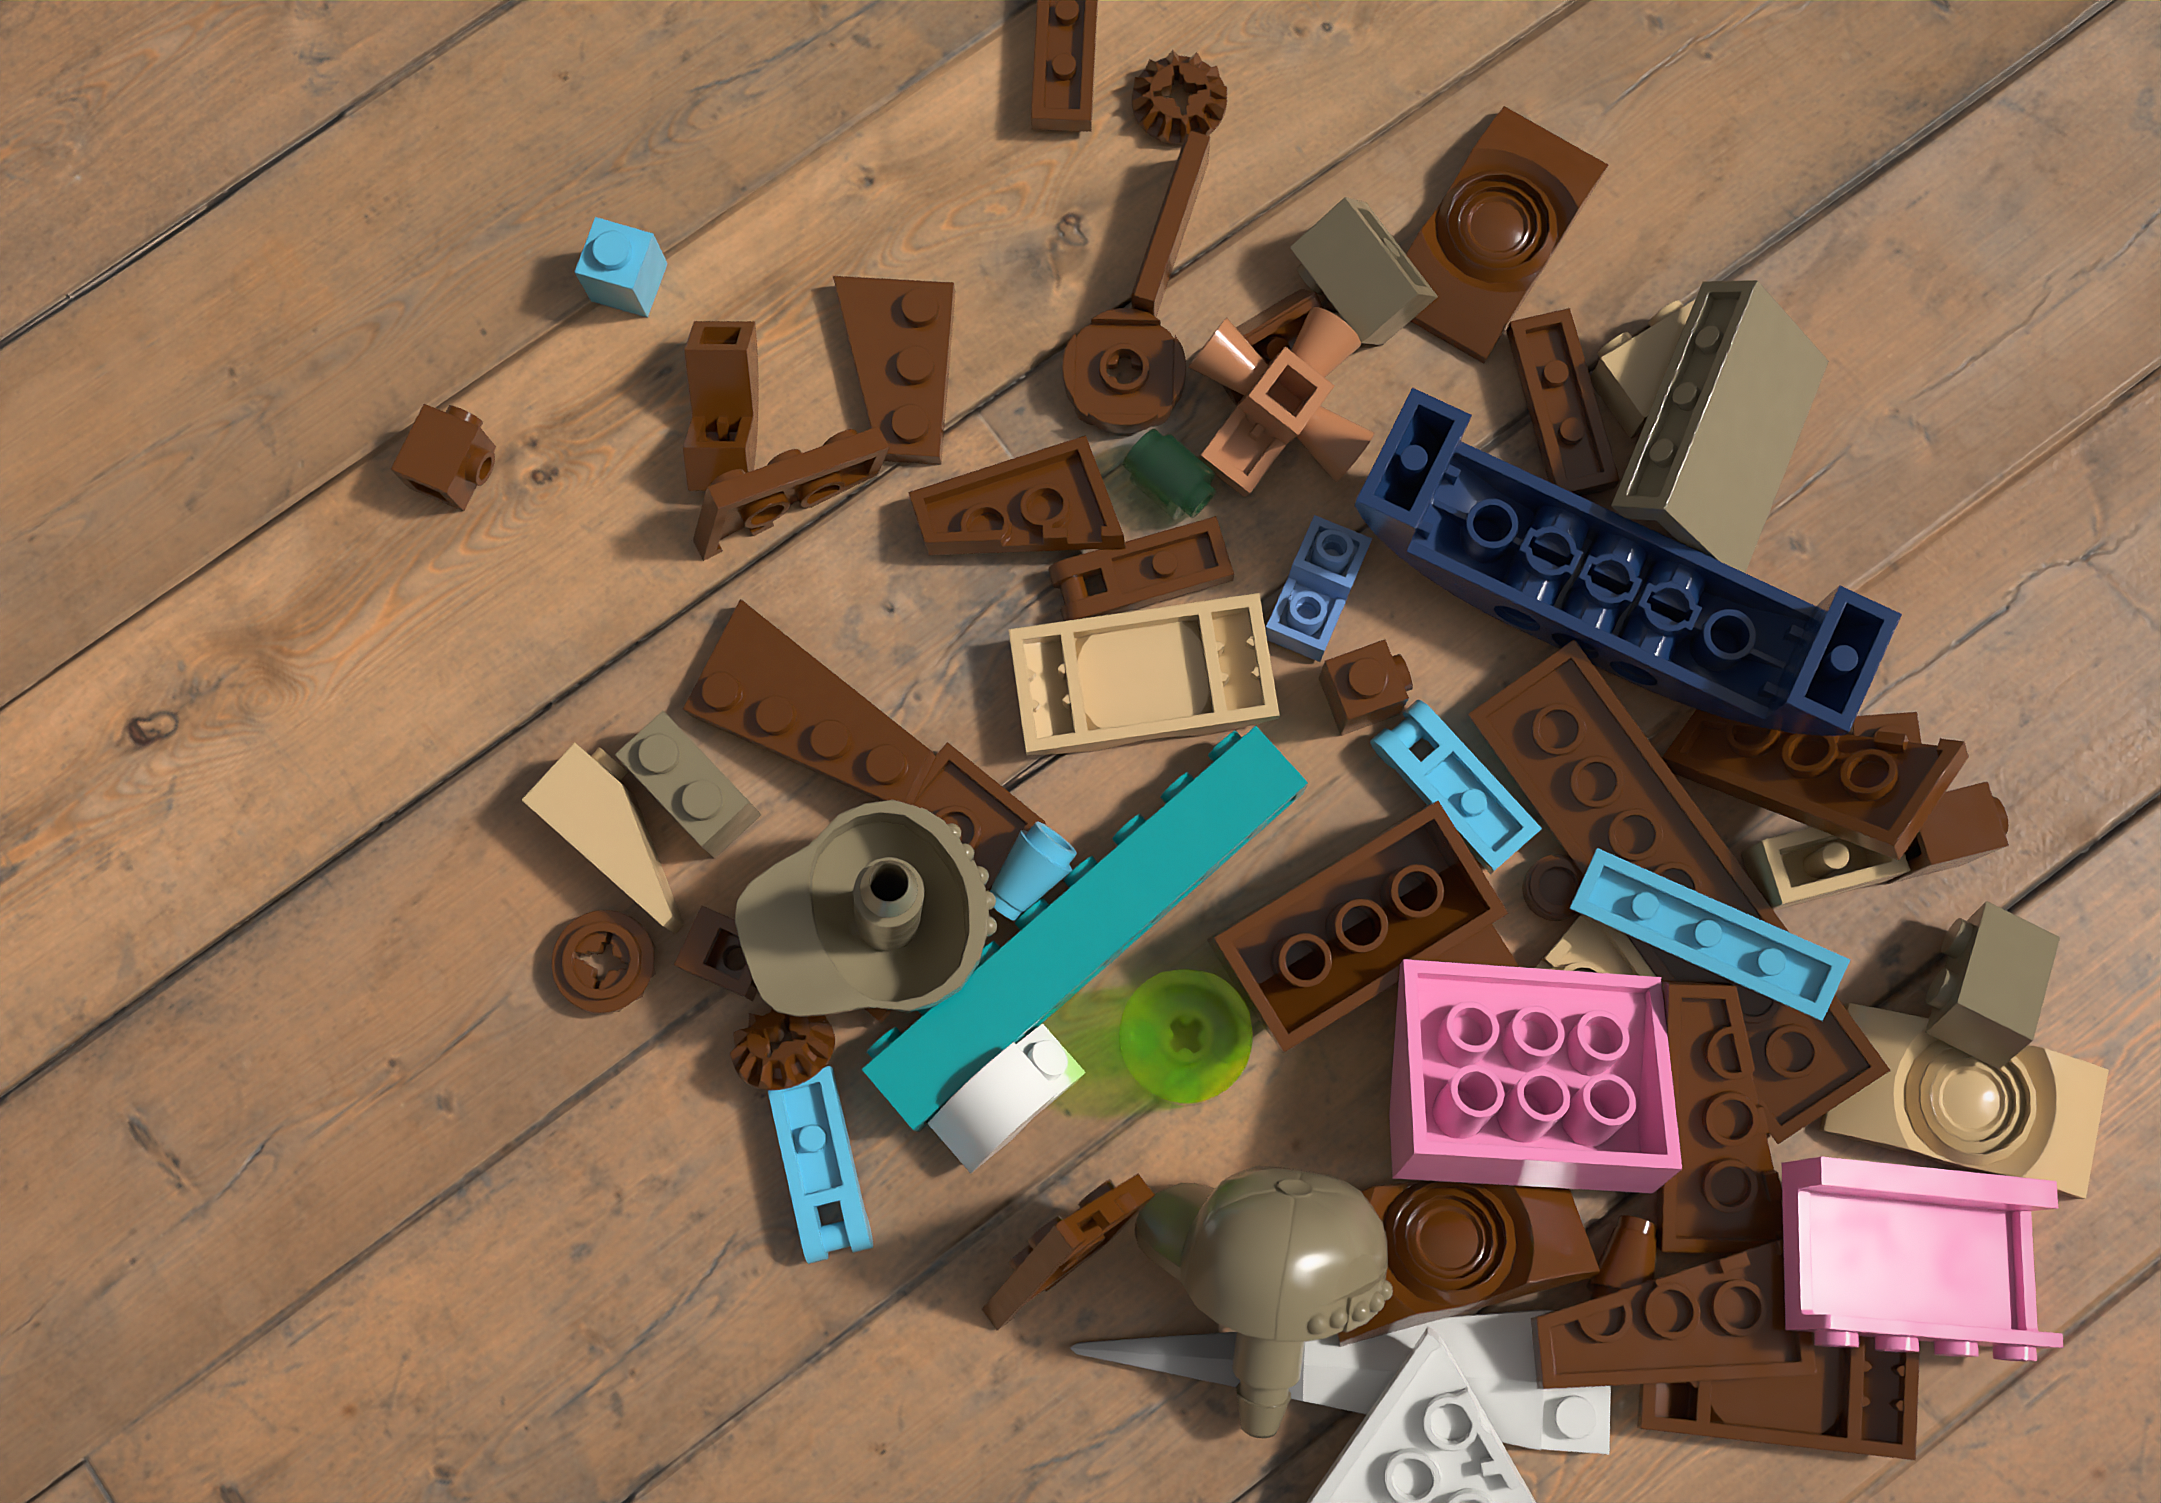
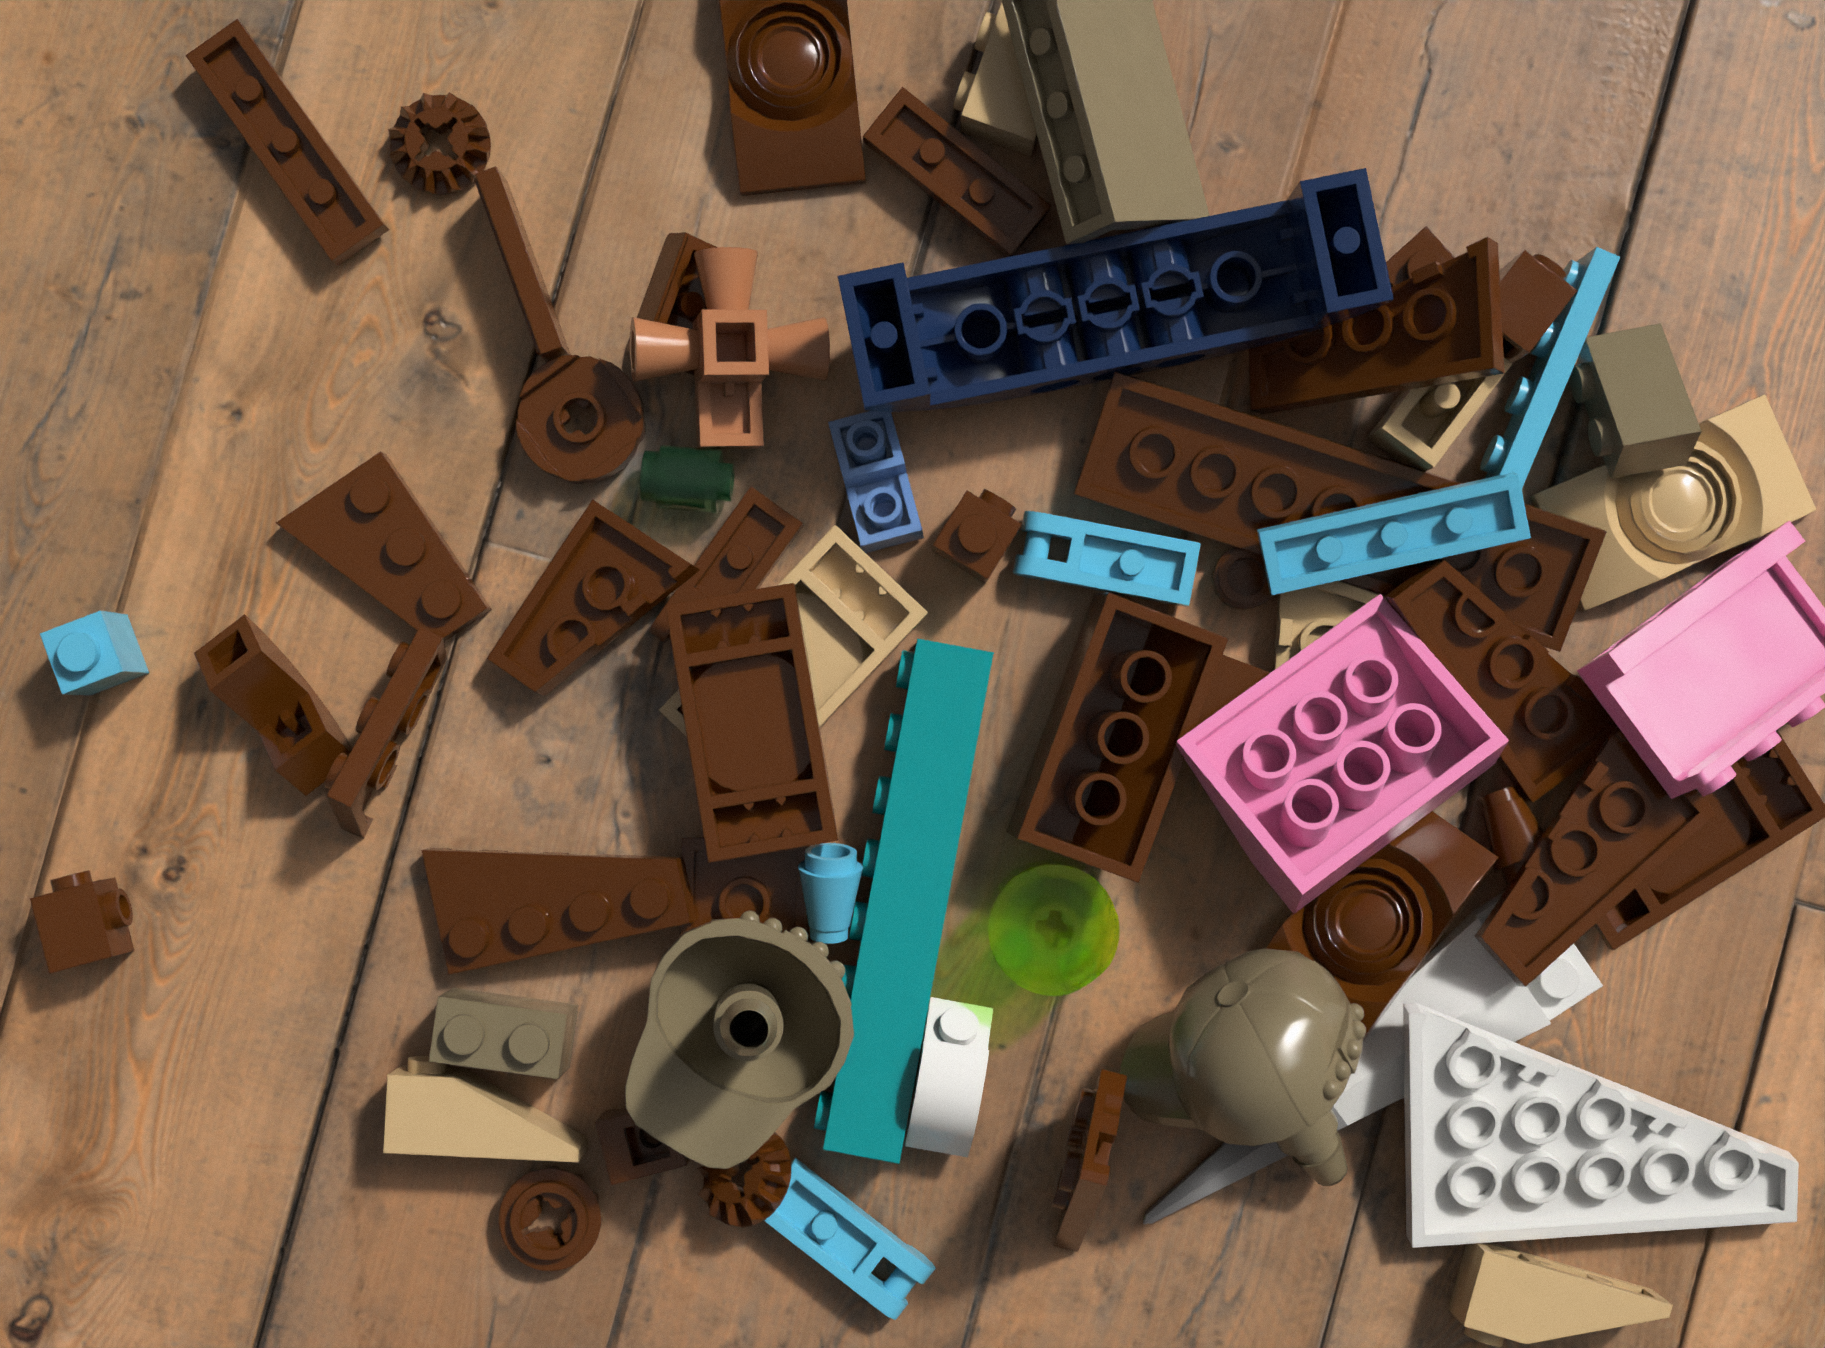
camera: 40 degrees left, 10 degrees up
(1074, 689) = (751, 722): none -> reddish brown slope
(1362, 272) = (711, 187): dark tan brick -> none
(1953, 897) = (1536, 398): none -> medium azure plate

